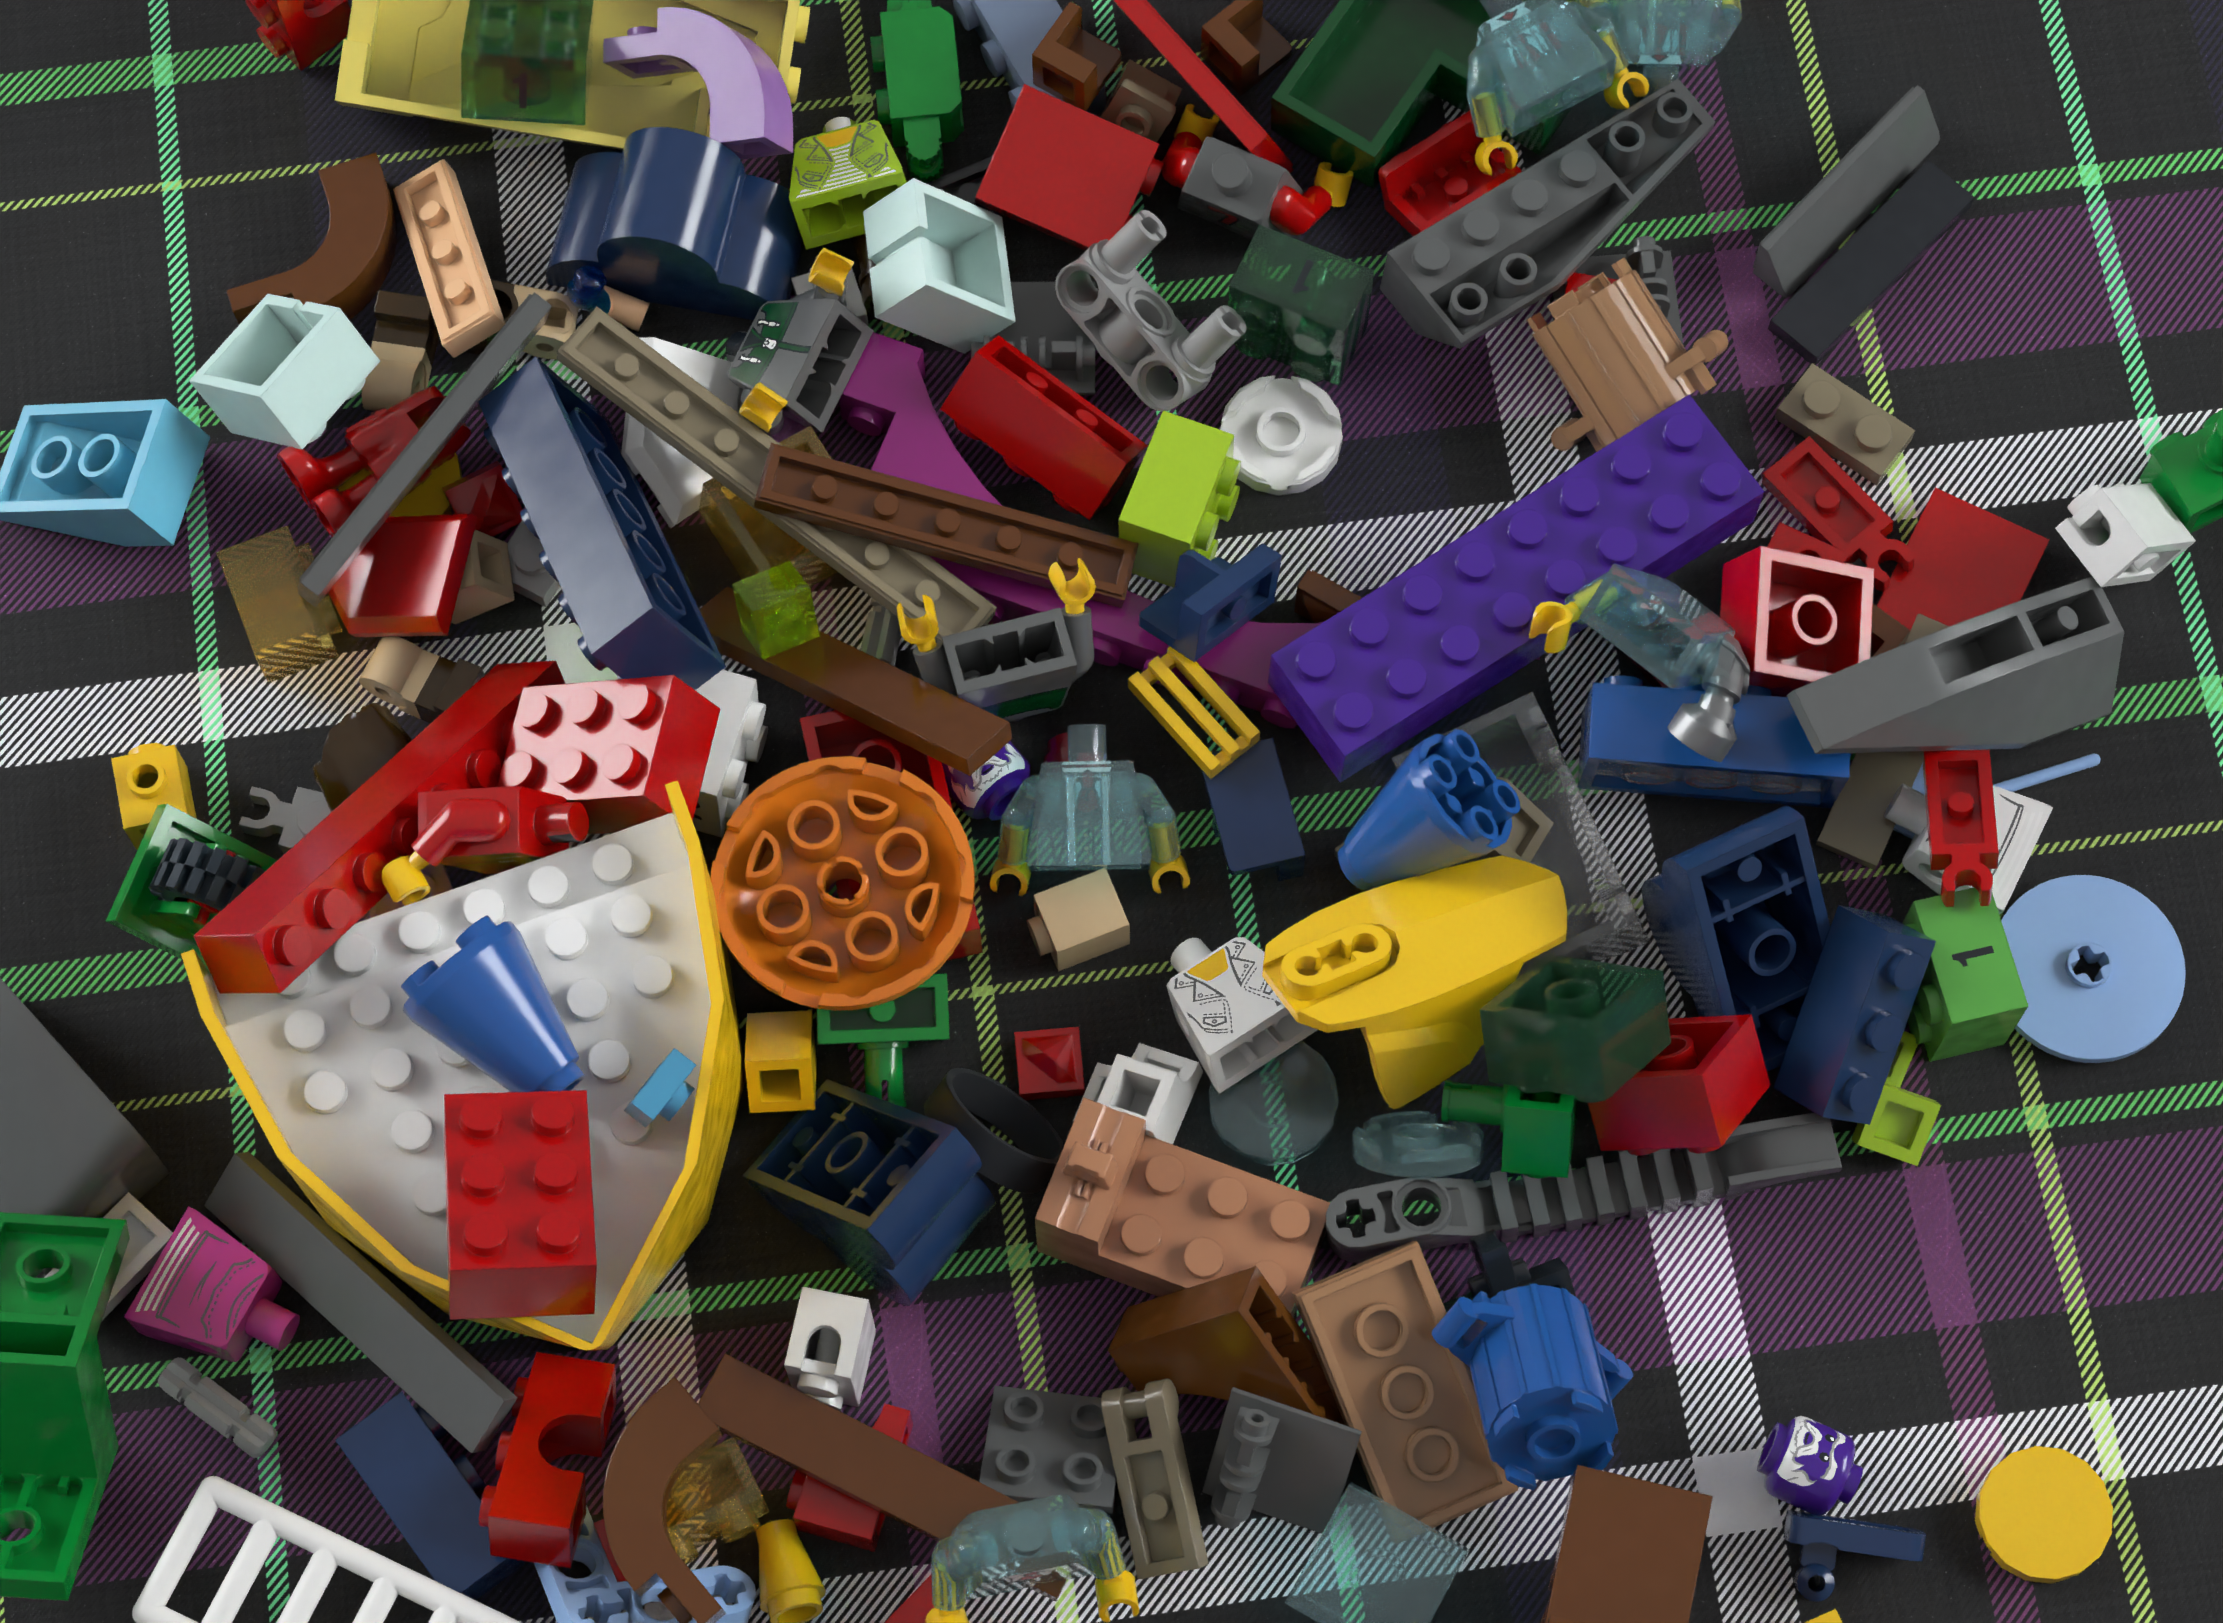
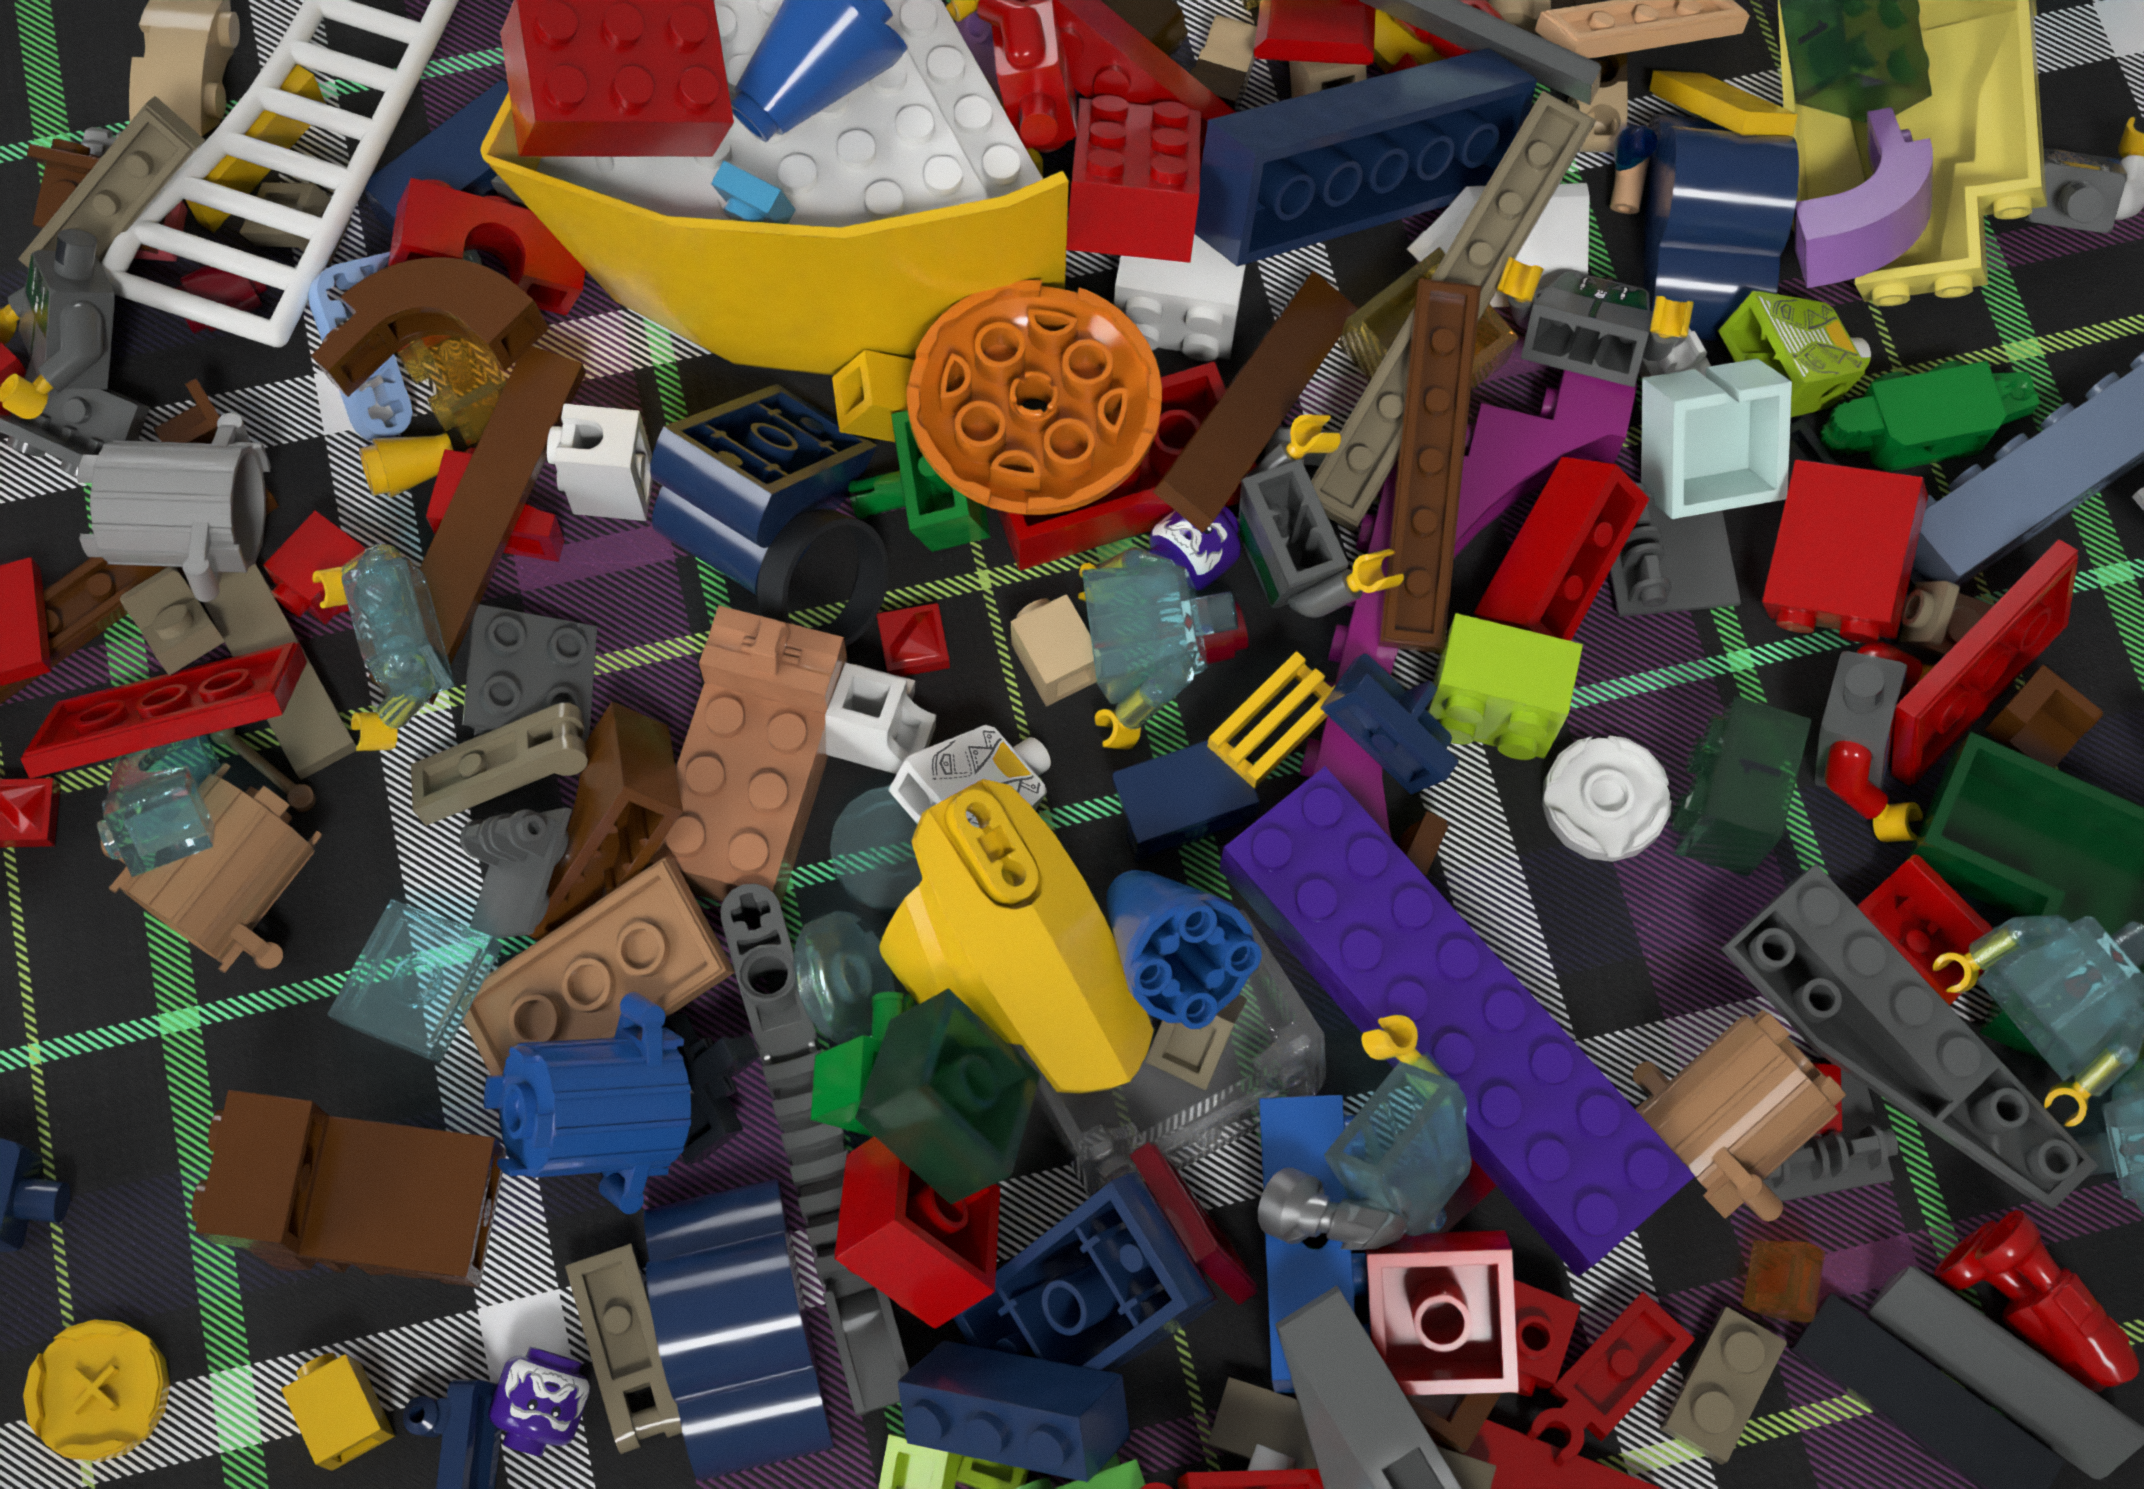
camera: 80 degrees right, 0 degrees up
(562, 196) = (1723, 103): none -> yellow tile
(776, 610) = (1321, 327): clear neon green plate -> none
(1072, 61) = (1972, 536): reddish brown panel -> none
(1135, 325) = (1692, 631): light grey piece -> none
(1652, 857) = (1193, 1224): none -> dark red tile
(1742, 1273) = (735, 1330): none -> dark blue brick
(1756, 1387) = (623, 1344): none -> dark tan plate
(1757, 355) = (1784, 1280): none -> clear orange brick
(1792, 148) = (2046, 1304): none -> red piece

